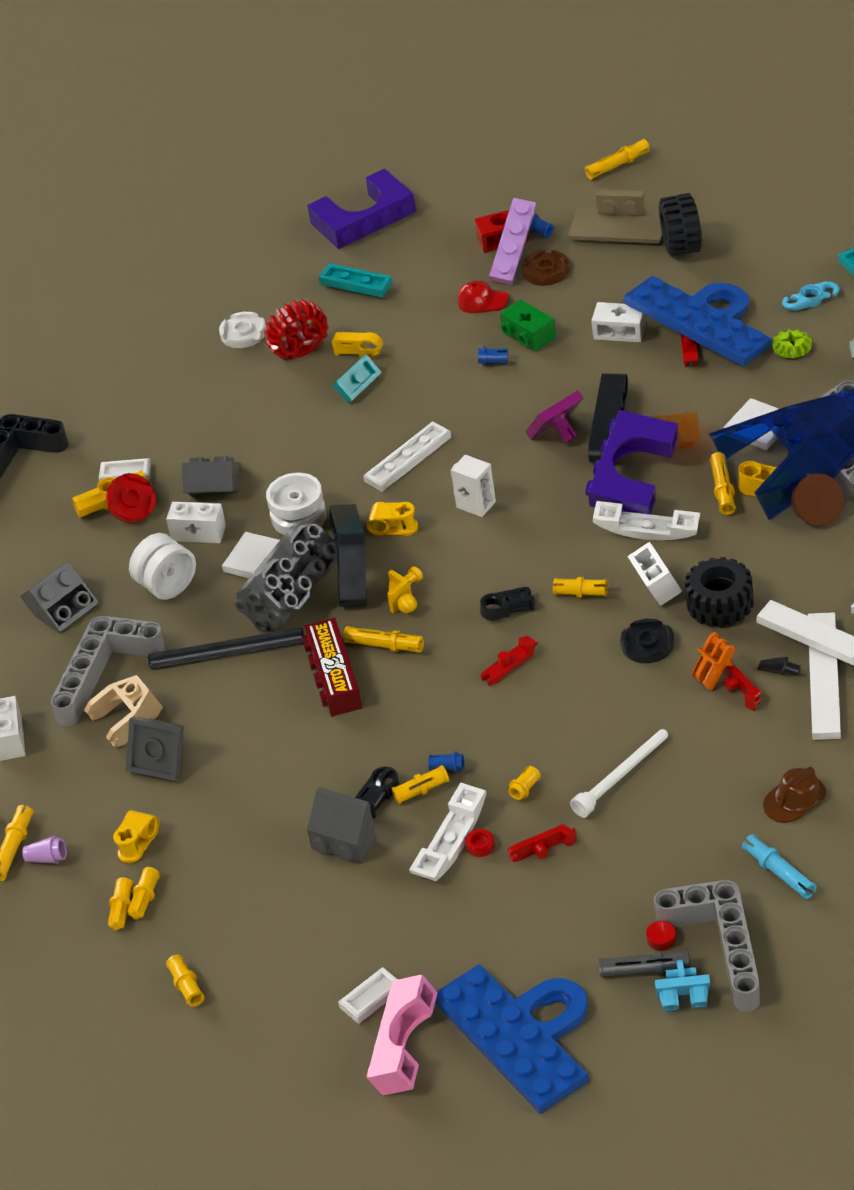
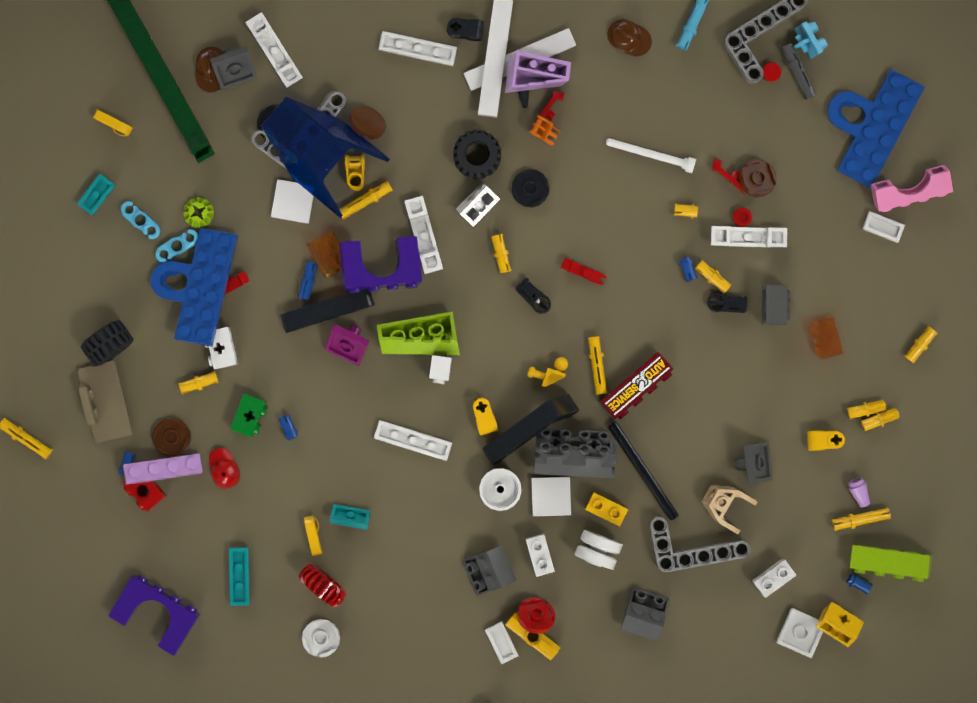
camera: 125 degrees left, 45 degrees up
(205, 595) = (606, 509): none -> yellow brick
(263, 878) = (826, 338): none -> clear orange bracket
(521, 485) = (420, 336): none -> lime wedge
(521, 869) = (757, 178): none -> reddish brown tile
(591, 296) = (198, 382): none -> yellow pin
(648, 408) = (307, 280): none -> blue axle
(764, 310) = (168, 246): none -> medium azure piece
(794, 665) = (535, 72): none -> lavender wedge

